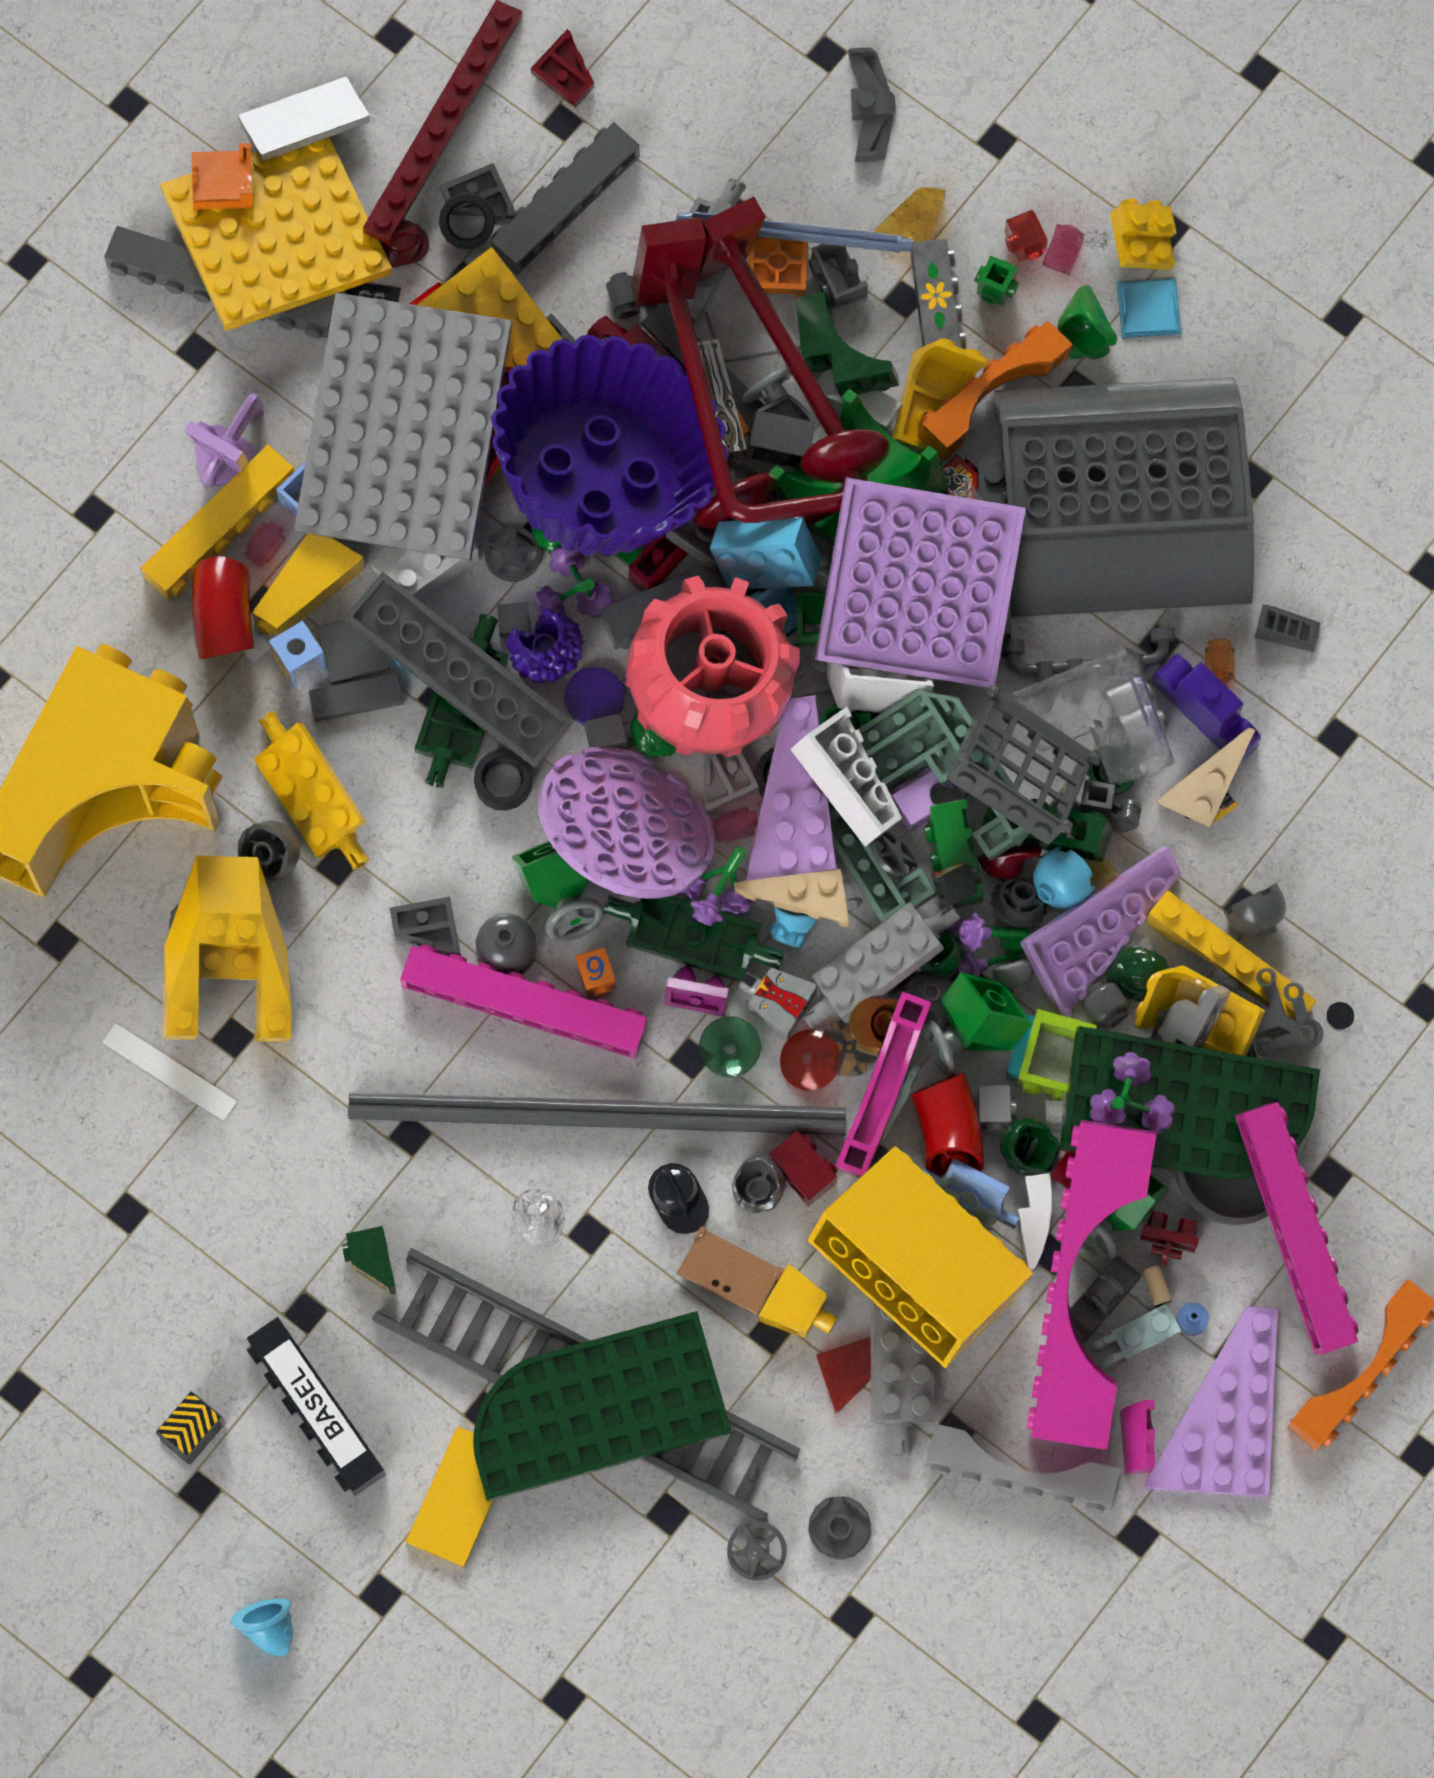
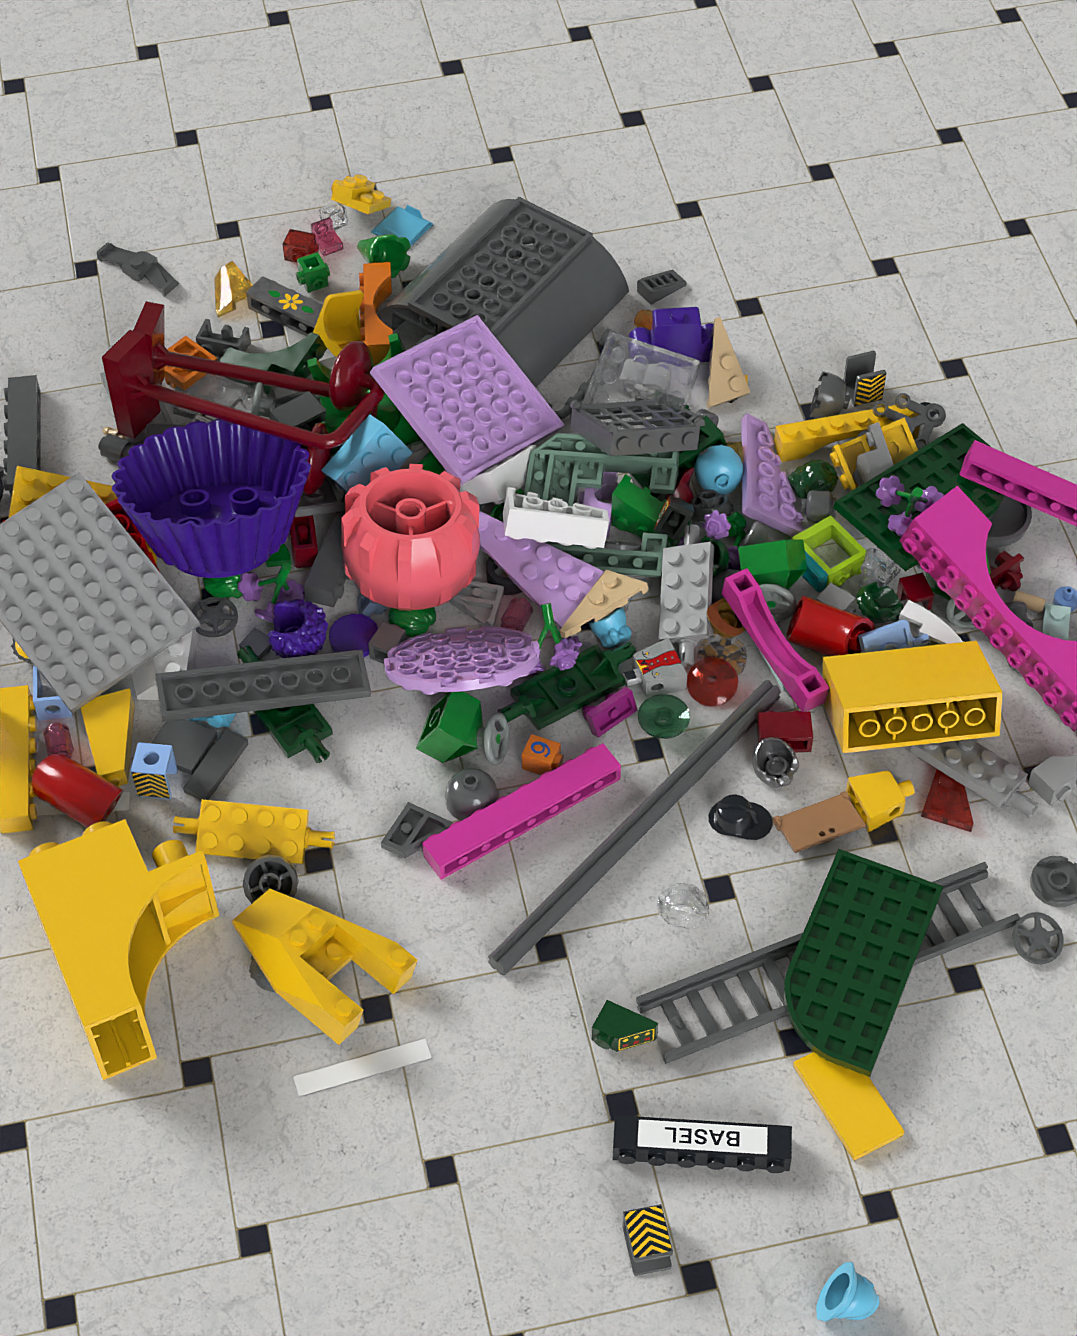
camera: 50 degrees left, 20 degrees down
(497, 802) = (353, 704): black tyre -> none
(823, 235) = (203, 319): sand blue piece -> none
(1318, 915) = (861, 380): none -> dark grey piece

